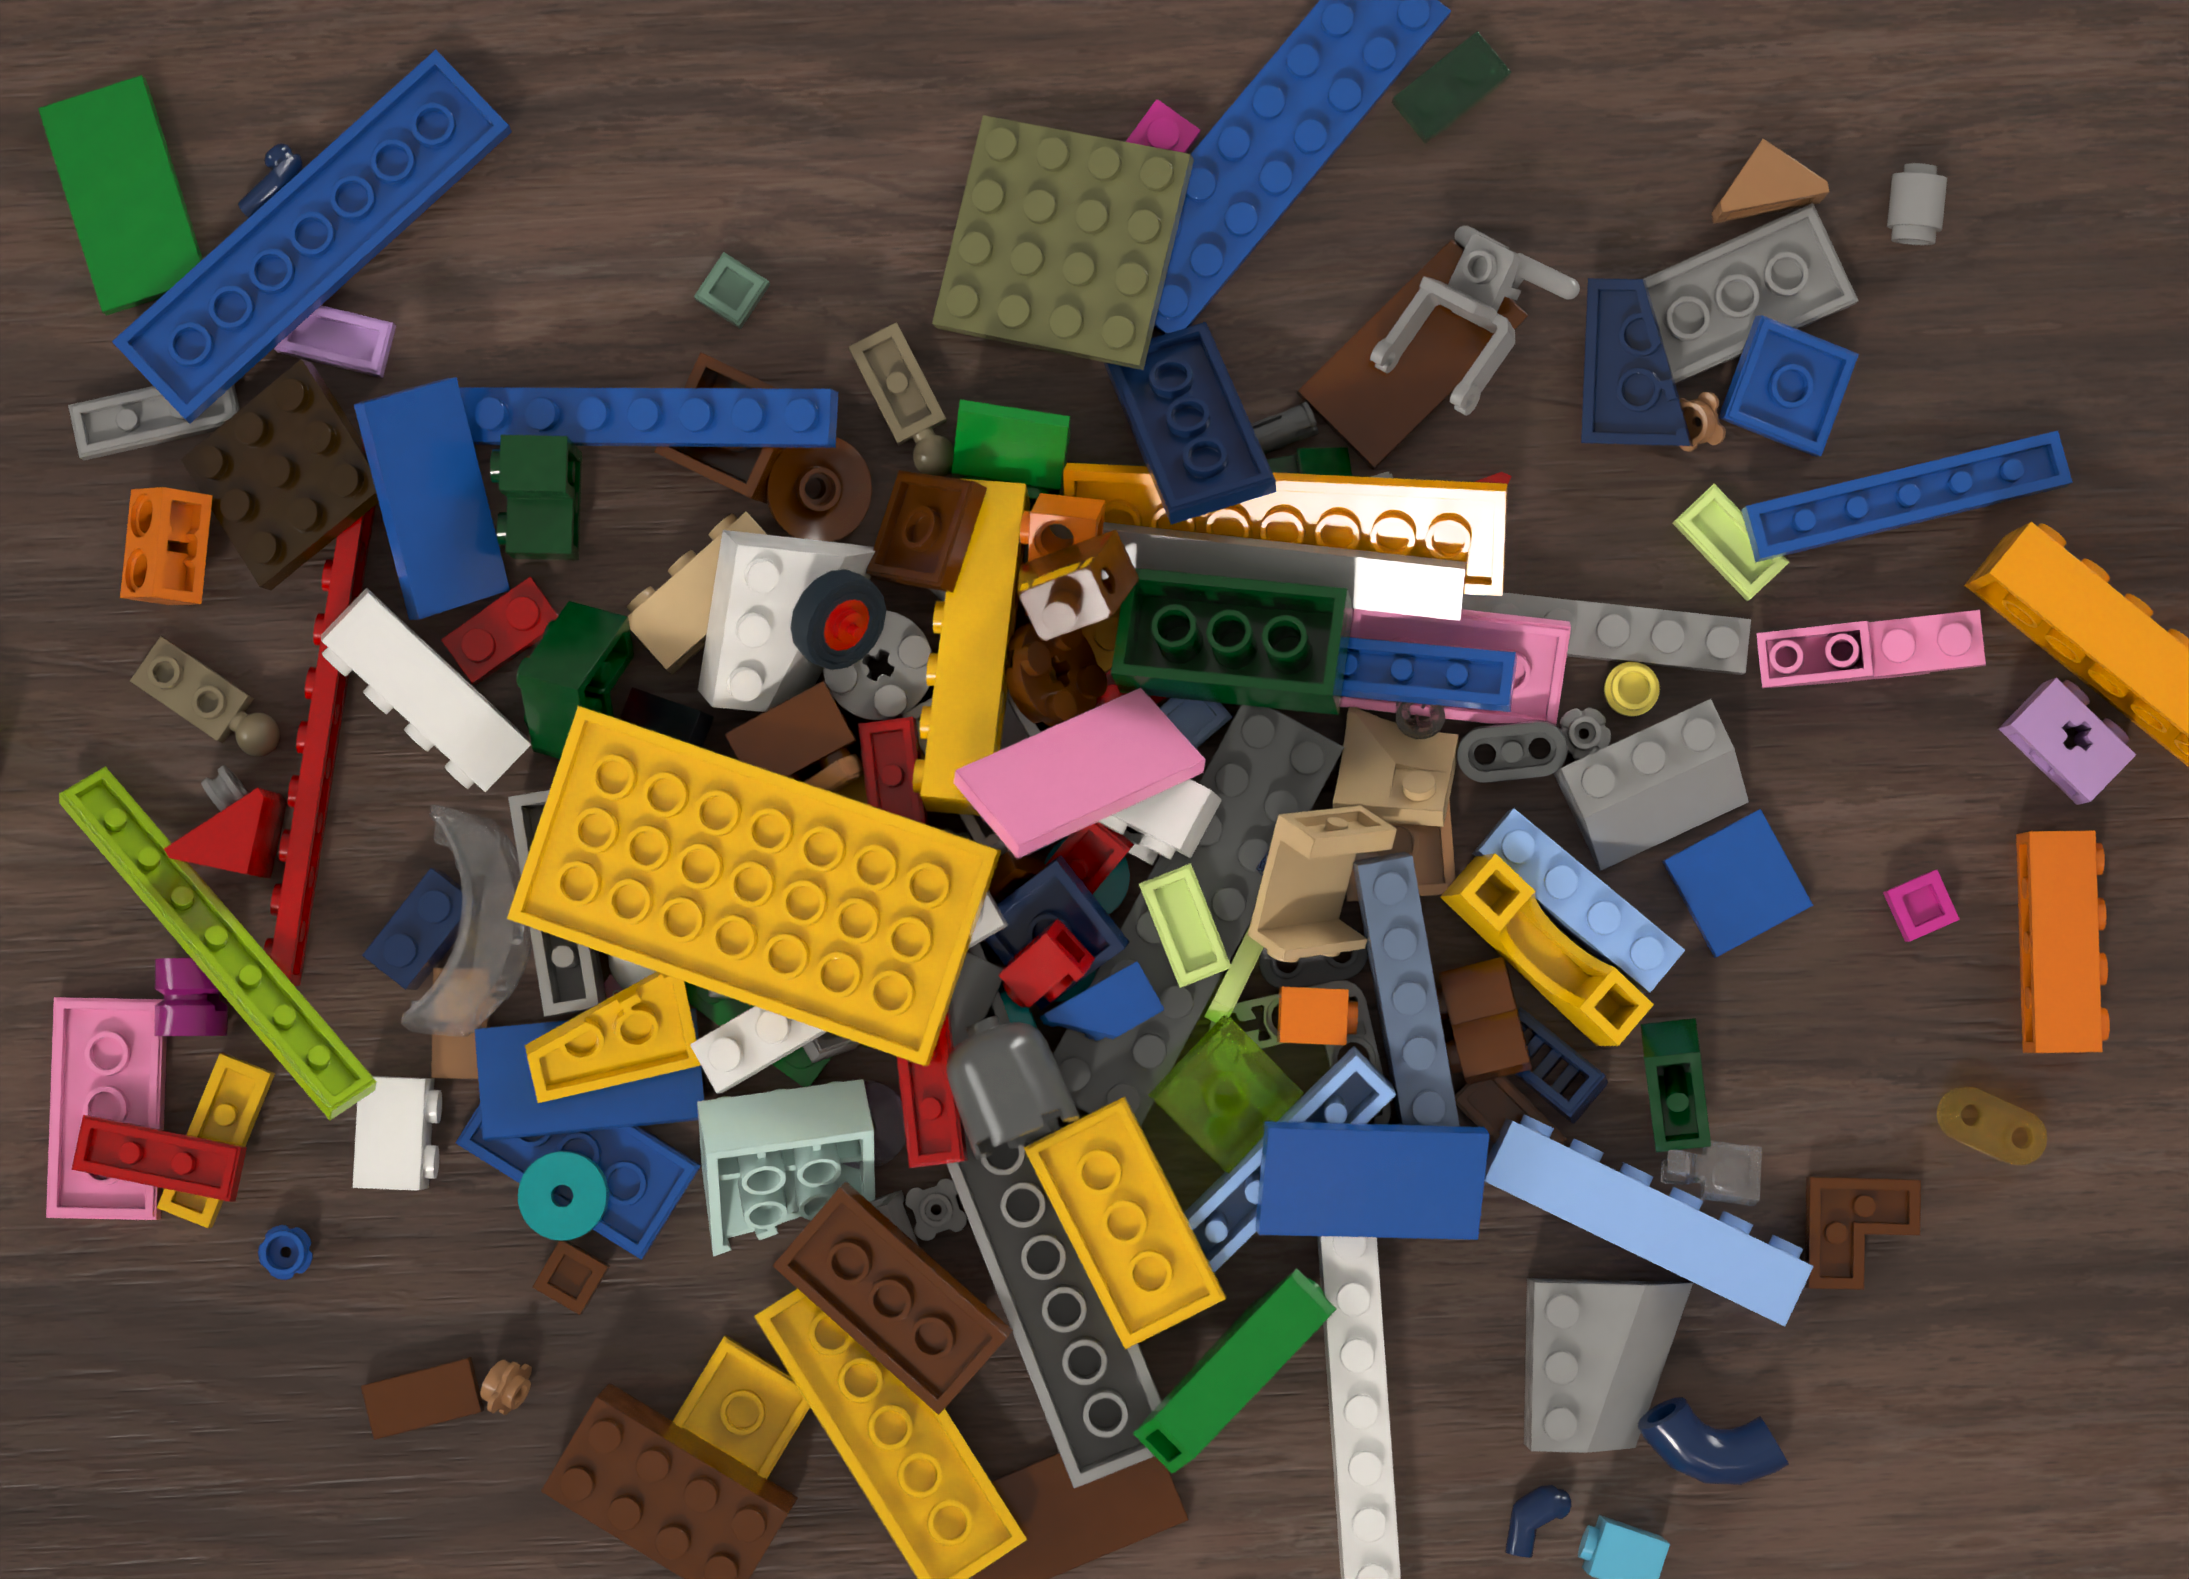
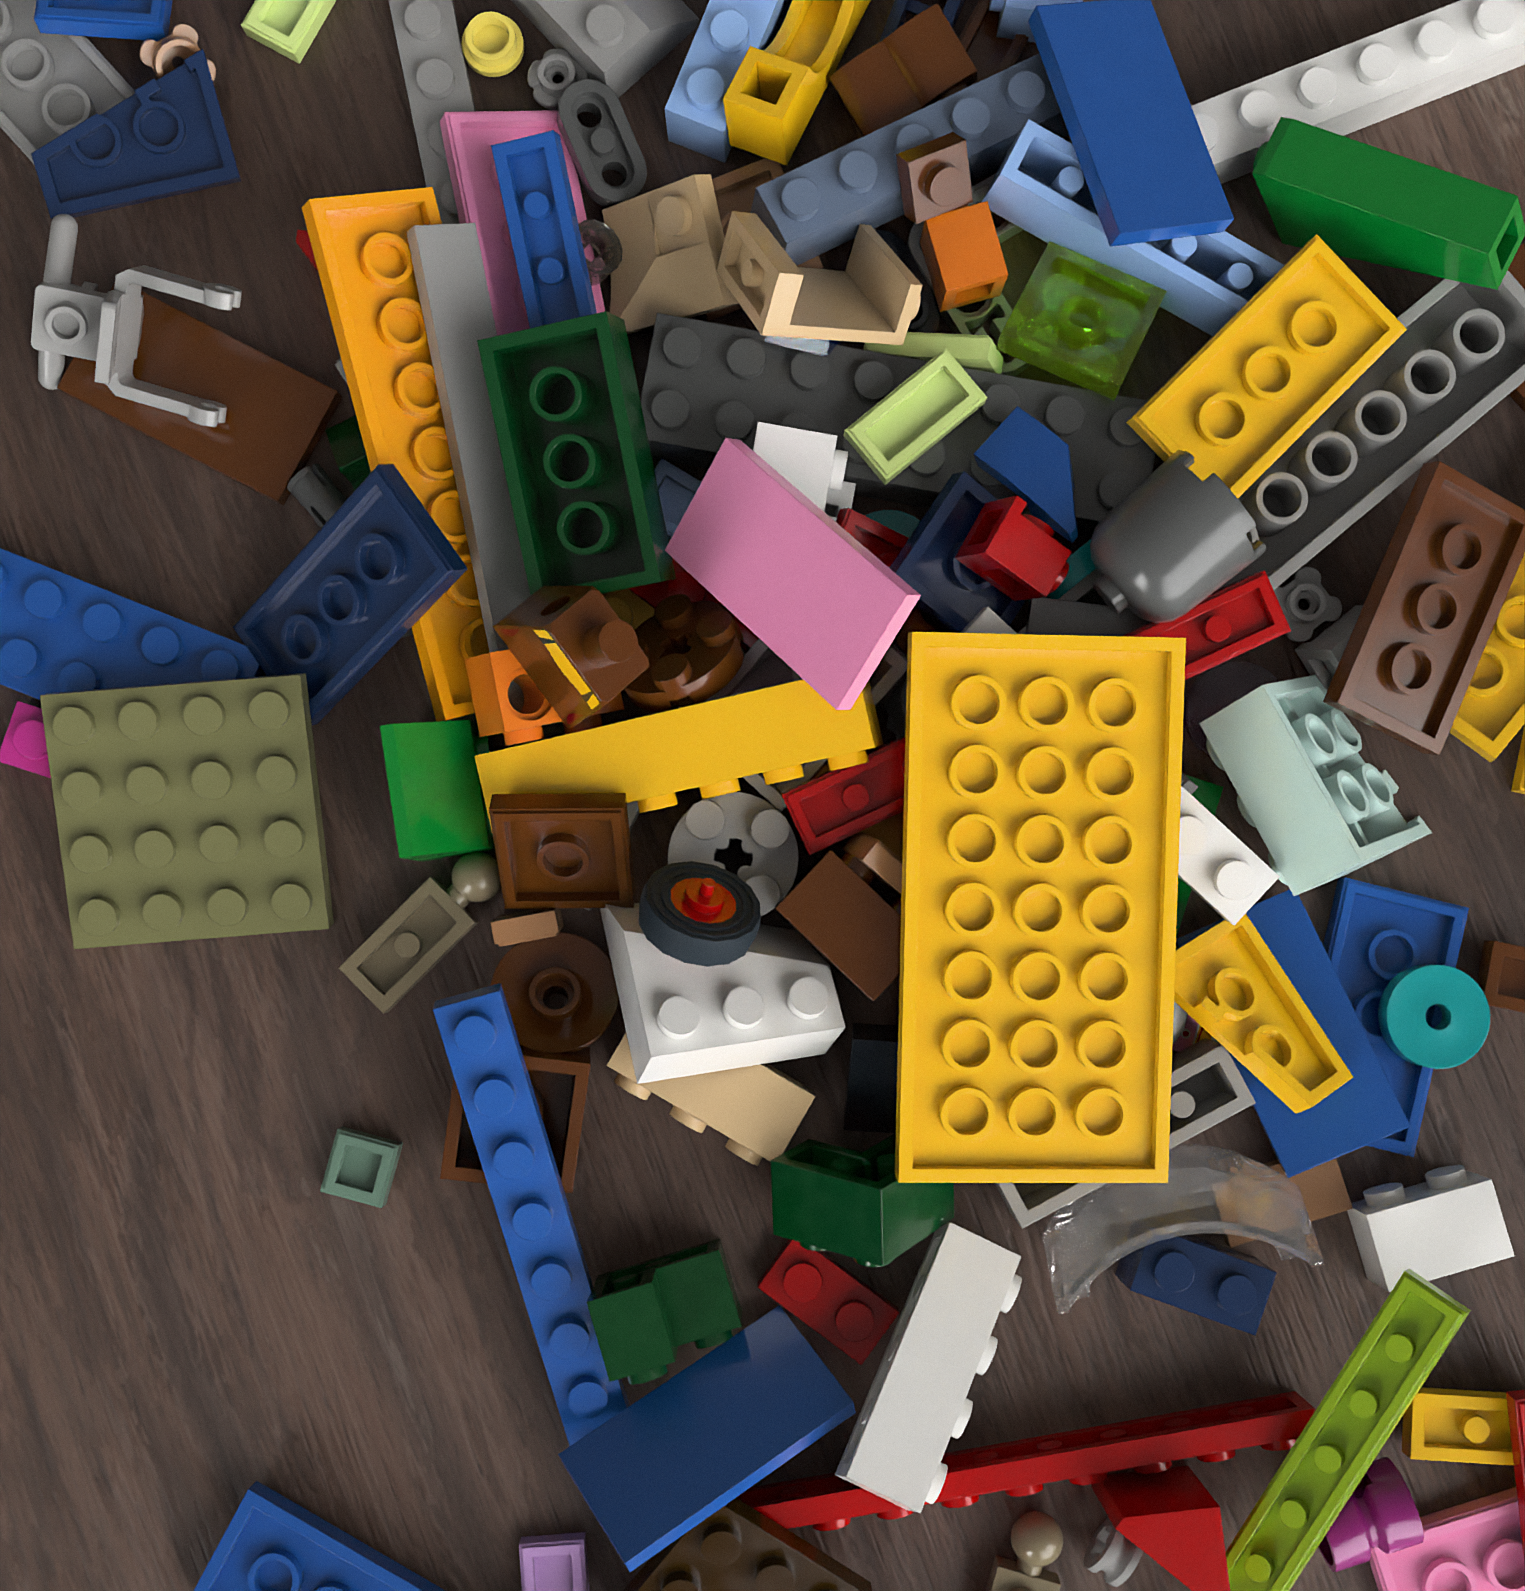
camera: 110 degrees left, 0 degrees up
(880, 482) = (526, 926): none -> medium nougat tile
(1375, 1005) = (934, 177): none -> plate

